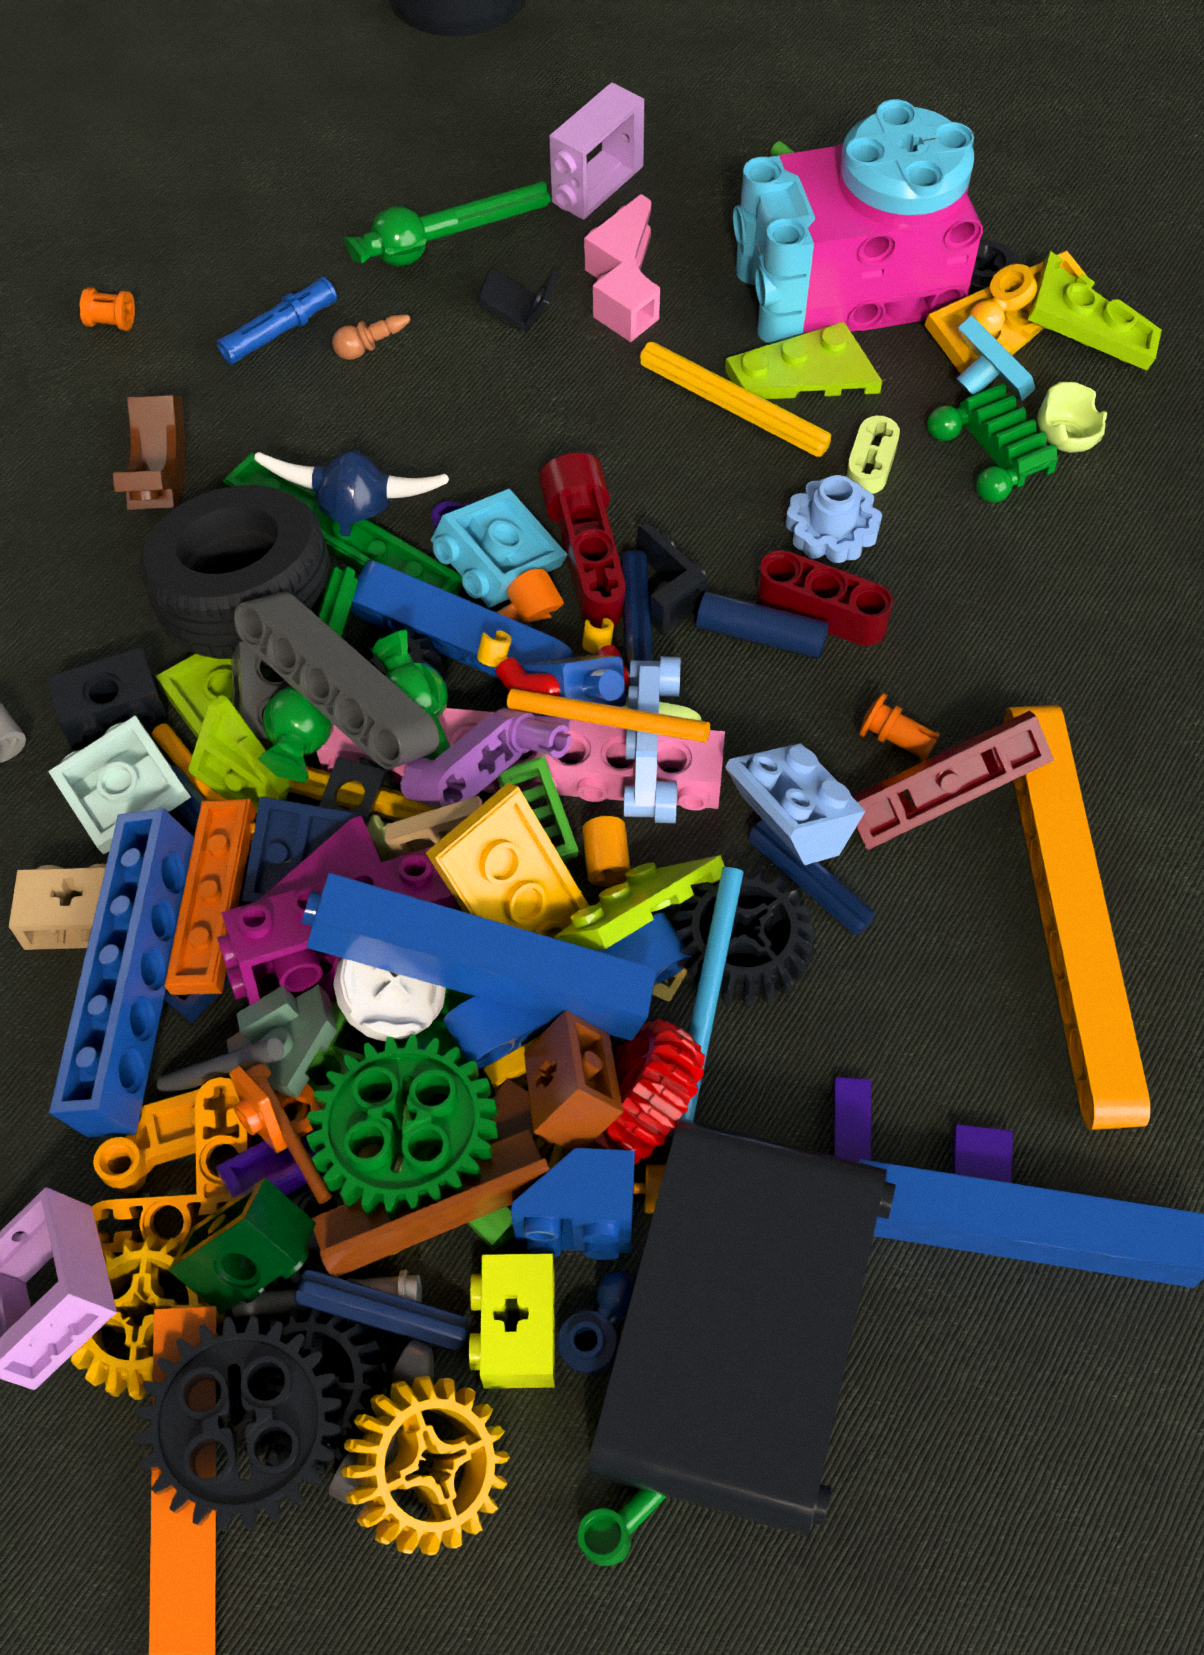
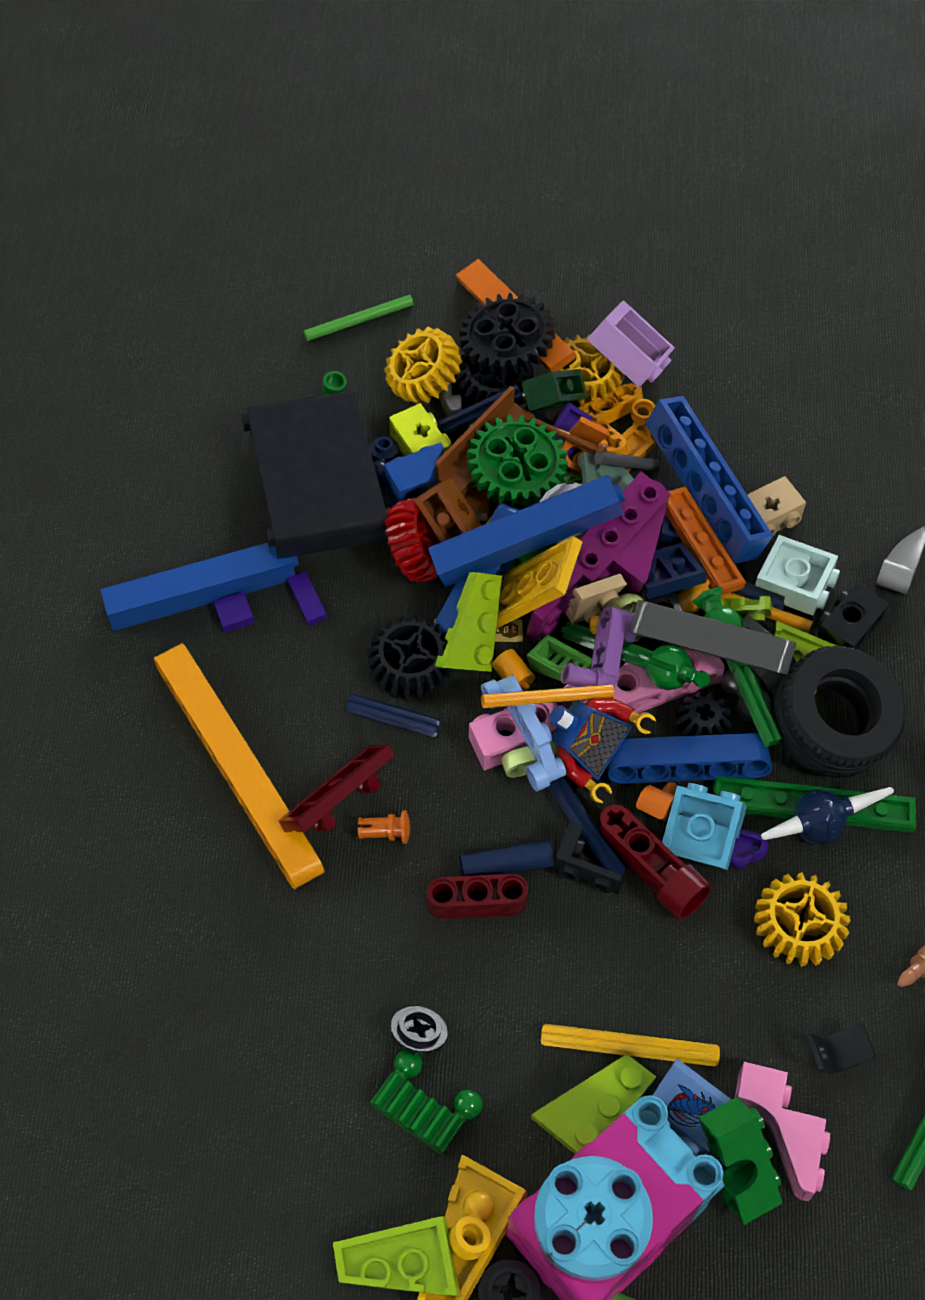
camera: 150 degrees right, 0 degrees up
(458, 430) = (829, 925): none -> yellow gear
(605, 119) = (881, 1224): lavender window -> none
(699, 222) = (737, 1139): none -> green arch
(713, 305) = (686, 1100): none -> medium blue slope
(713, 968) = (411, 607): dark azure piece -> none
(798, 800) = (422, 724): light blue slope -> none
(833, 519) = (503, 966): light blue plant -> none
(879, 456) = (513, 1043): yellowish green beam -> none
(955, 483) = (425, 1022): none -> gear
(992, 362) = (453, 1158): medium azure tile -> none
(1071, 417) = (373, 1139): yellowish green hair -> none

